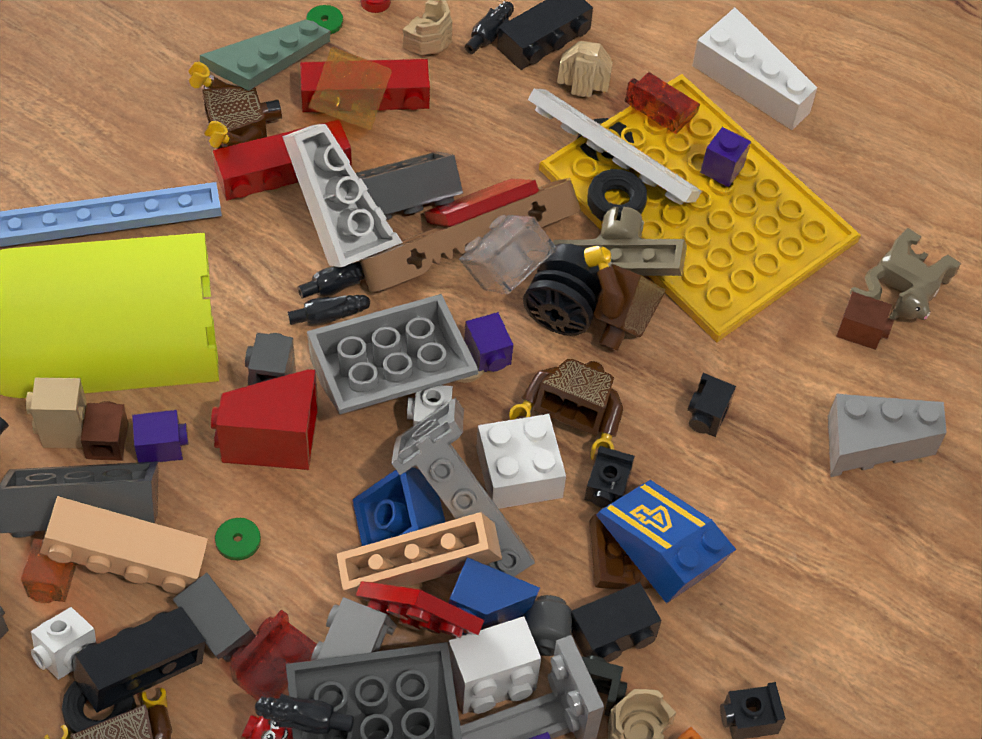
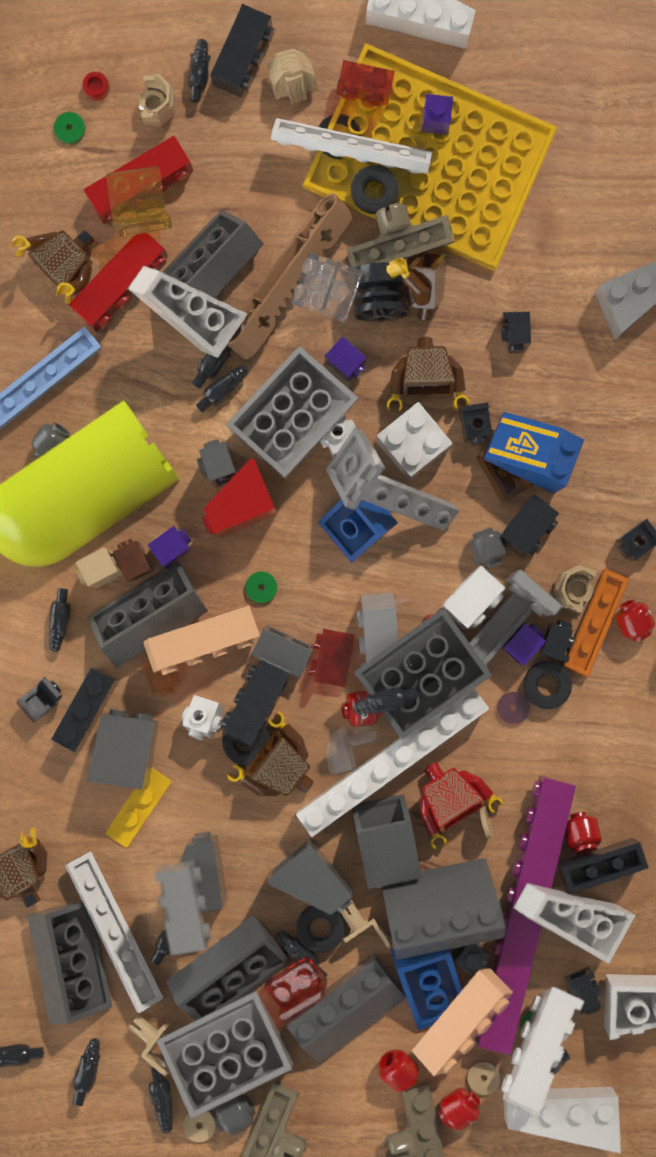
camera: 20 degrees left, 30 degrees up
(267, 54) = (50, 195): sand green wing -> none
(419, 609) = (414, 594): red plate -> none
(421, 554) = (391, 552): light nougat brick -> none
(481, 202) = (282, 245): red tile -> none
(491, 594) = (445, 559): blue slope -> none
(606, 680) = (532, 565): pearl dark grey bracket -> none
(865, 321) = (591, 204): copper brick -> none
(908, 274) = (606, 148): dark tan animal -> none

